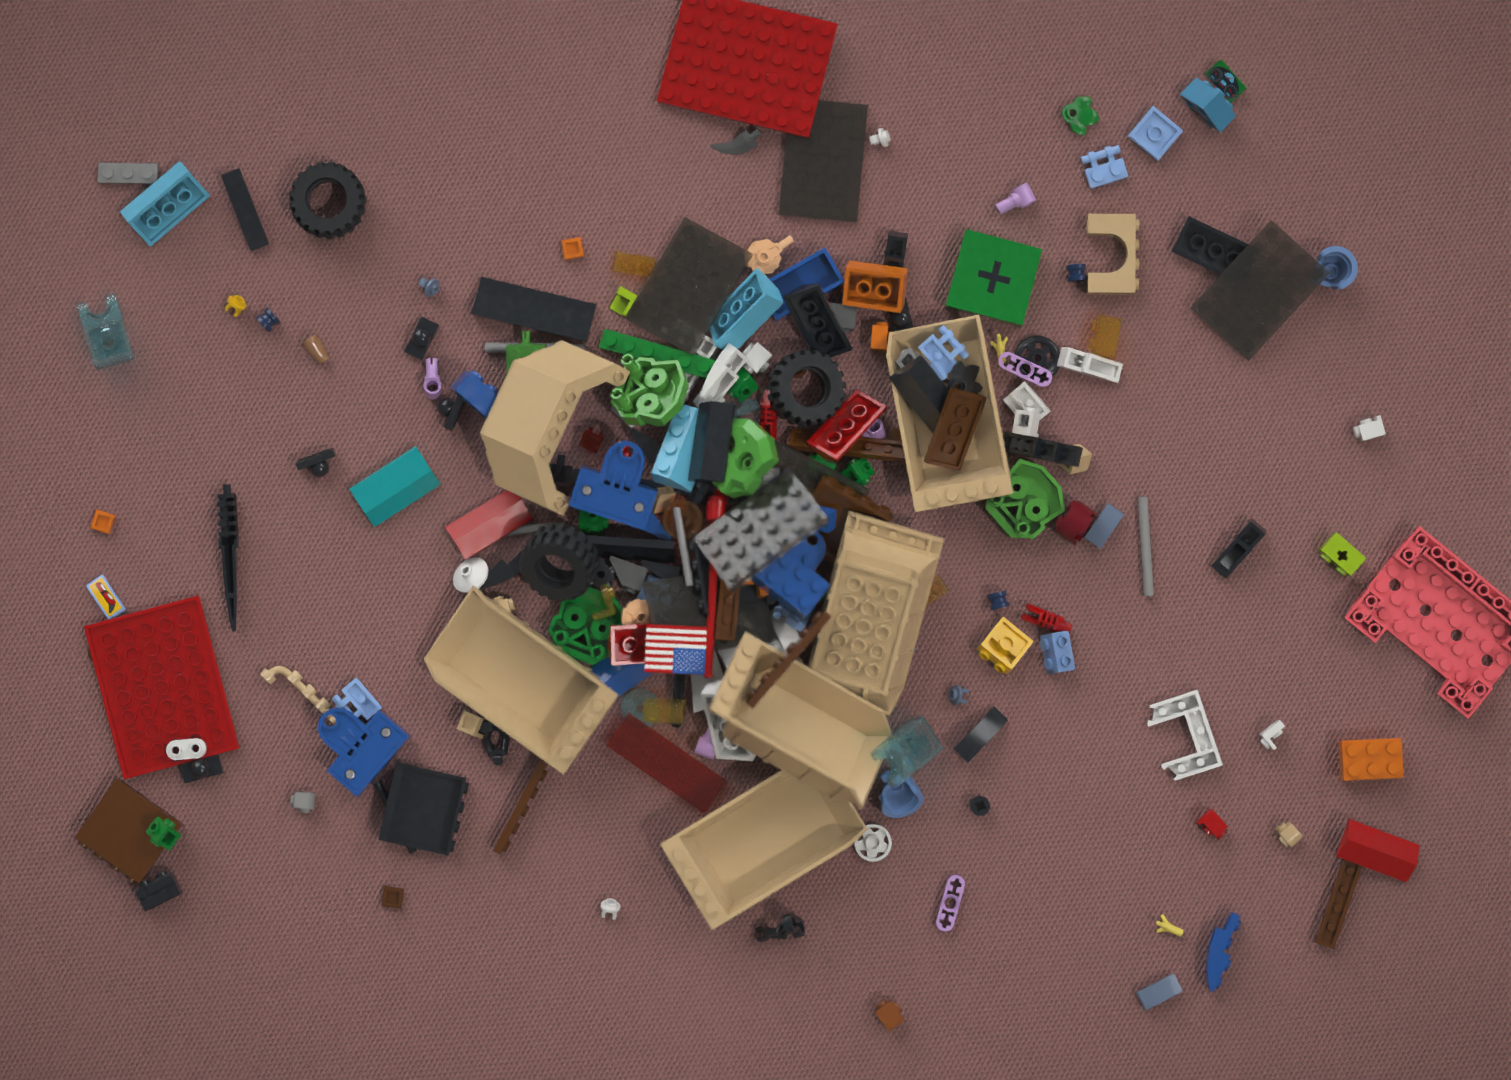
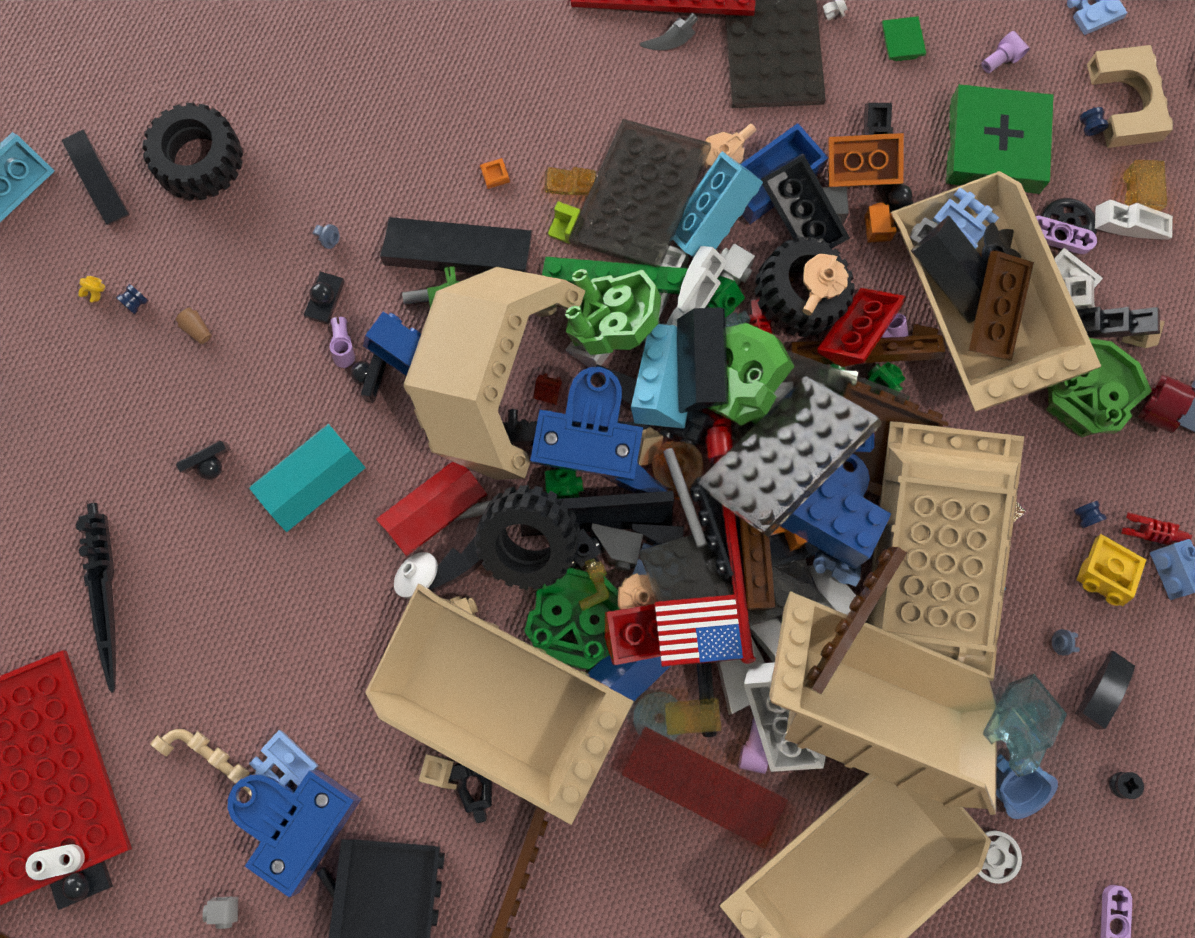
camera: 10 degrees left, 10 degrees down
(817, 389) = (823, 279): none -> light nougat piece
(934, 173) = (903, 38): none -> green piece

